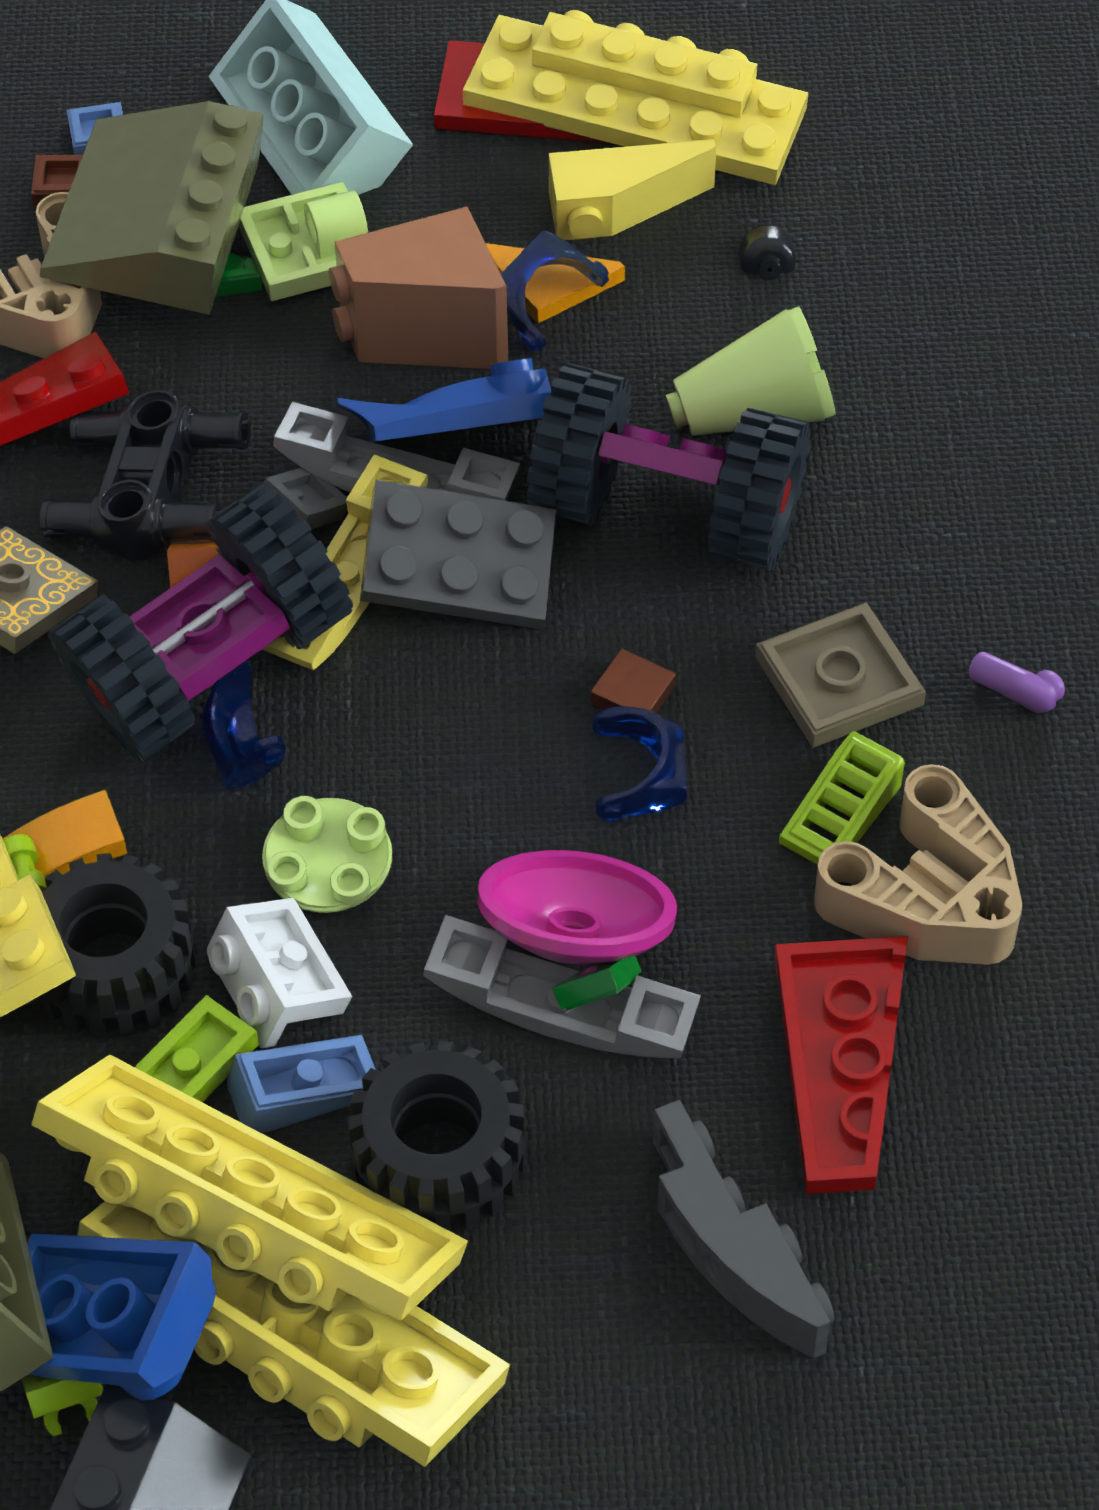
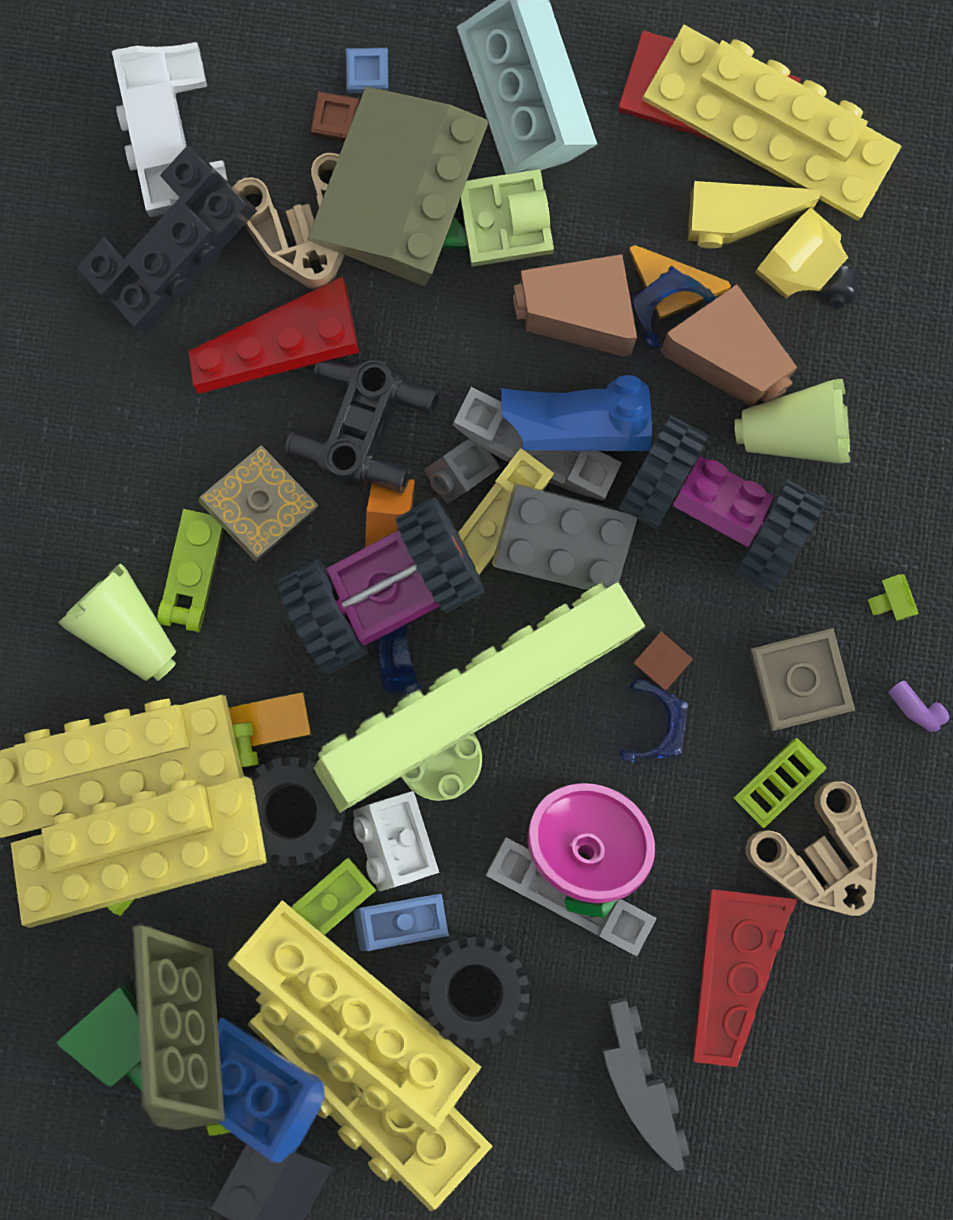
camera: 10 degrees right, 30 degrees up
(357, 727) = (479, 696): none -> yellowish green brick
(635, 308) = (732, 350): none -> nougat slope
(705, 224) = (804, 256): none -> light yellow slope
(943, 559) = (897, 598): none -> lime tile

